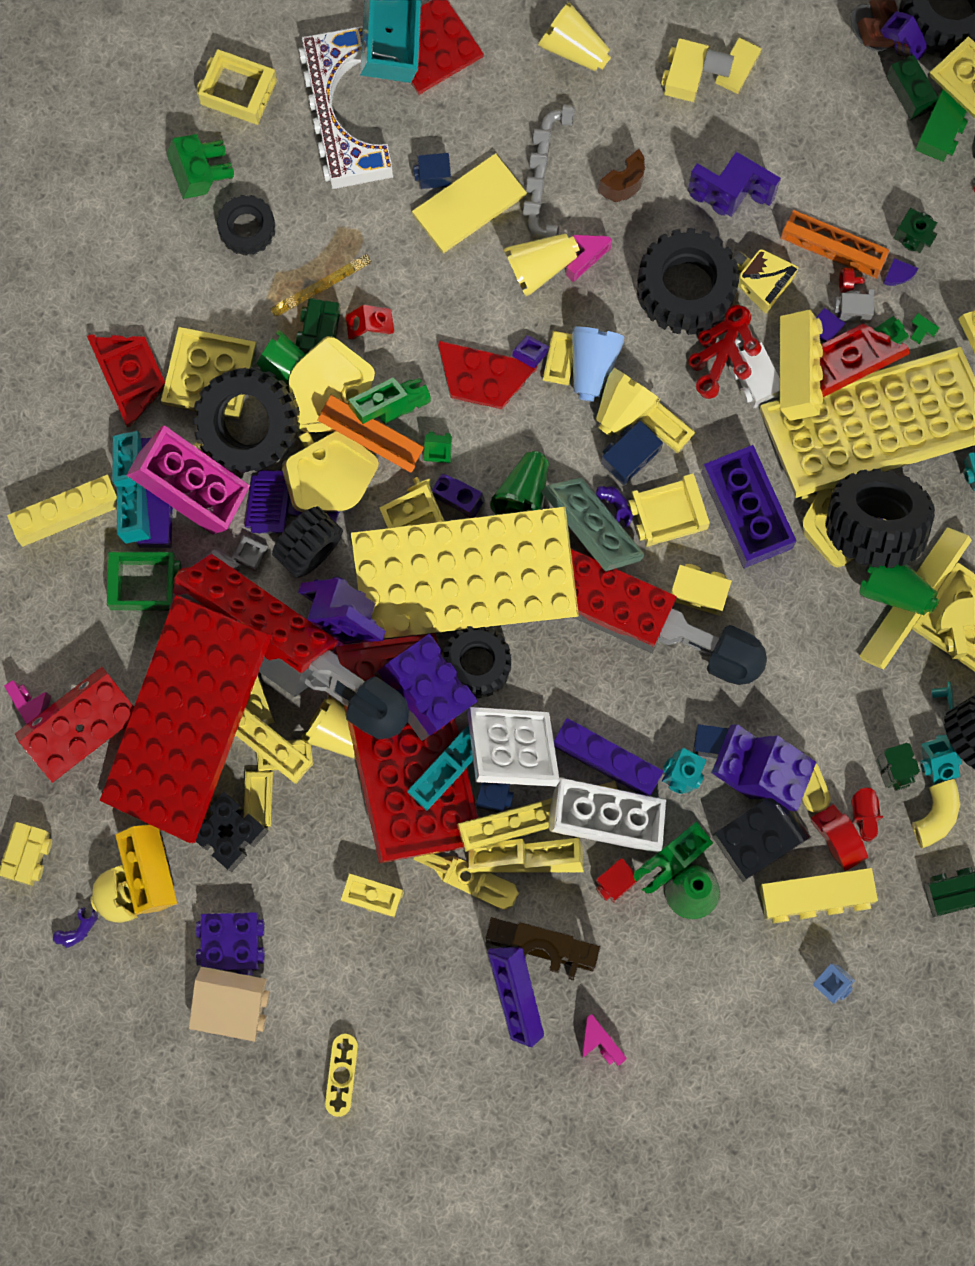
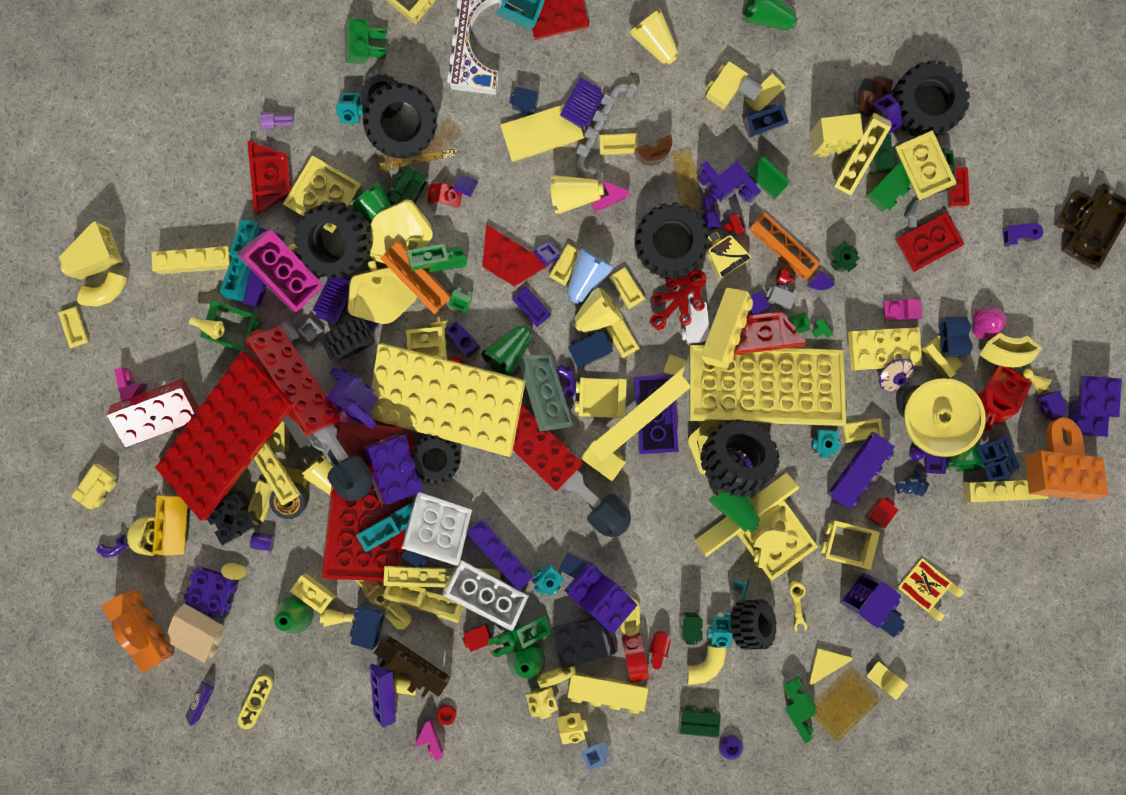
camera: 20 degrees right, 10 degrees up
(107, 301) = (269, 120): none -> medium lavender piece
(121, 585) = (213, 328): none -> light yellow cone
(149, 1026) = (137, 631): none -> orange brick
(209, 252) = (349, 108): none -> teal brick
(253, 904) = (234, 571): none -> light yellow sticker
(263, 1103) = (199, 703): none -> dark purple slope
(278, 852) = (262, 542): none -> dark purple piece
(297, 798) = (290, 510): none -> wheel
(309, 222) = (373, 120): none -> black tyre
(362, 946) = (293, 615): none -> green cone
(393, 300) = (465, 185): none -> dark purple tile
(409, 921) = (332, 617): none -> light yellow cone
(461, 915) = (367, 625): none -> dark blue brick
(509, 151) = (582, 103): none -> dark purple window
(533, 426) = (531, 306): none -> dark purple tile
(543, 979) = (401, 683): none -> light yellow brick
(573, 186) = (618, 143): none -> light yellow tile
(610, 1003) = (446, 714): none -> red tile
(650, 361) = (626, 287): none -> light yellow tile
(678, 201) = (687, 181): none -> clear yellow tile
(727, 235) = (711, 218): none -> dark purple piece
(729, 512) = (640, 416): none -> light yellow tile
(735, 938) = (541, 702): none -> light yellow brick
(740, 894) = (555, 676): none -> light yellow tile
(750, 436) = (675, 365): none -> light yellow tile
(752, 96) = (765, 121): none -> dark blue brick
(763, 236) = (736, 225): none -> red tile
(785, 163) = (768, 177): none -> green panel
(788, 959) = (572, 728): none -> light yellow brick
(849, 81) = (836, 135): none -> light yellow brick
(891, 94) = (862, 154): none -> light yellow brick

